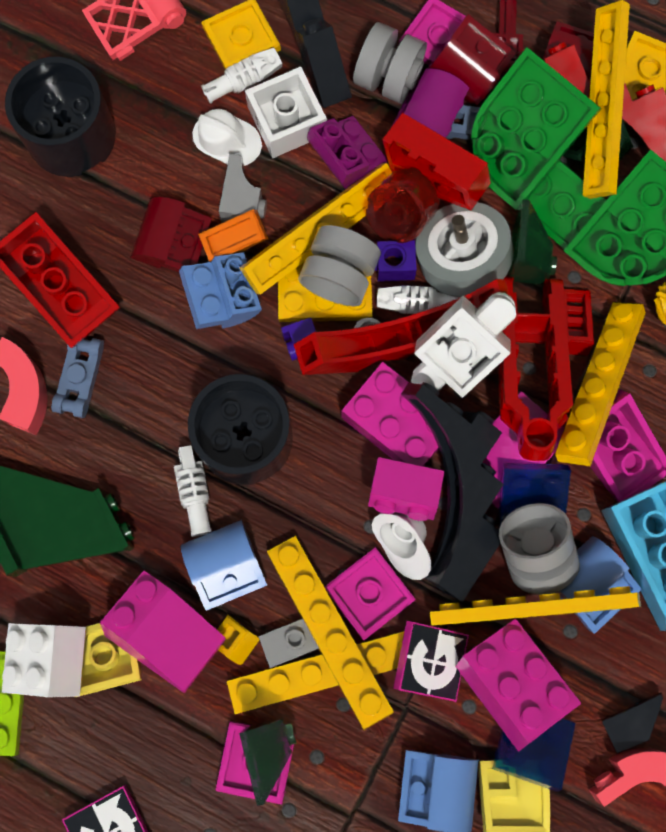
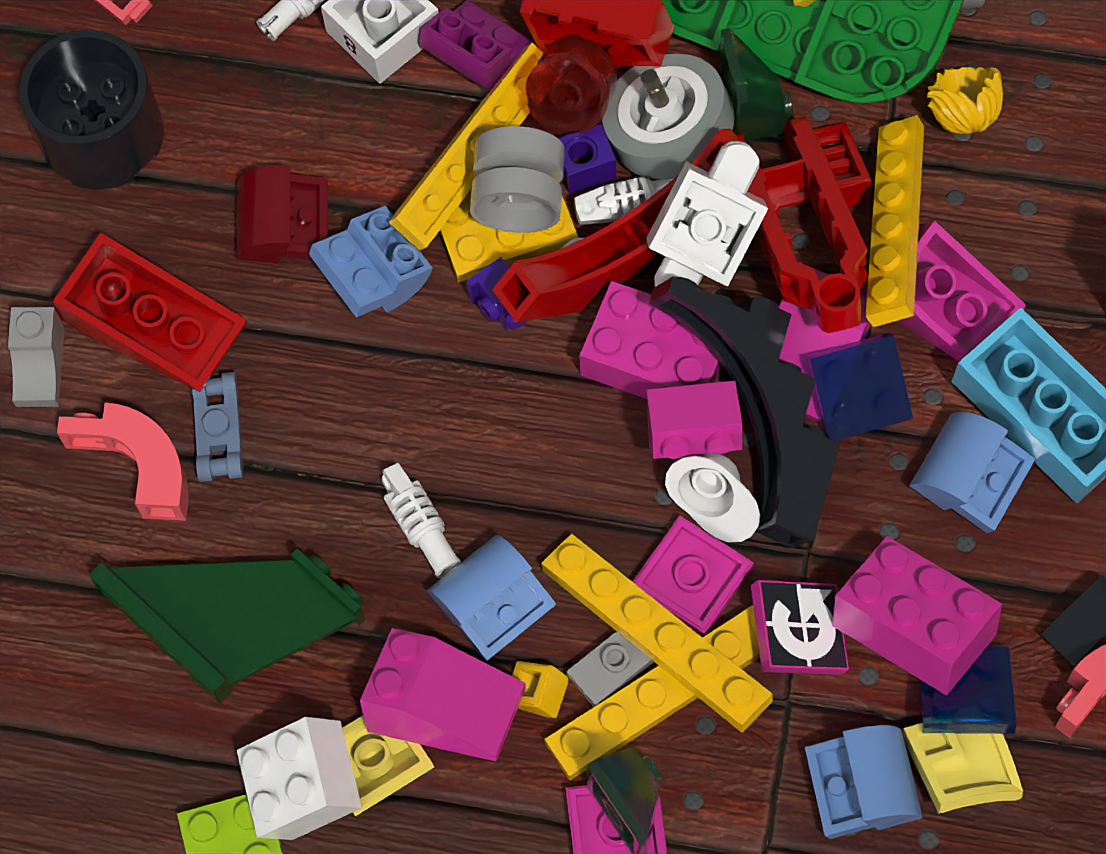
camera: 15 degrees left, 10 degrees down
(223, 134) = (311, 76): white piece -> none
(228, 408) = (455, 385): black brick -> none
(233, 235) = (365, 188): orange tile -> none
(238, 194) = (358, 143): light grey arch -> none
(539, 548) = (887, 441): light grey wheel -> none
(549, 605) = (920, 505): yellow plate -> none

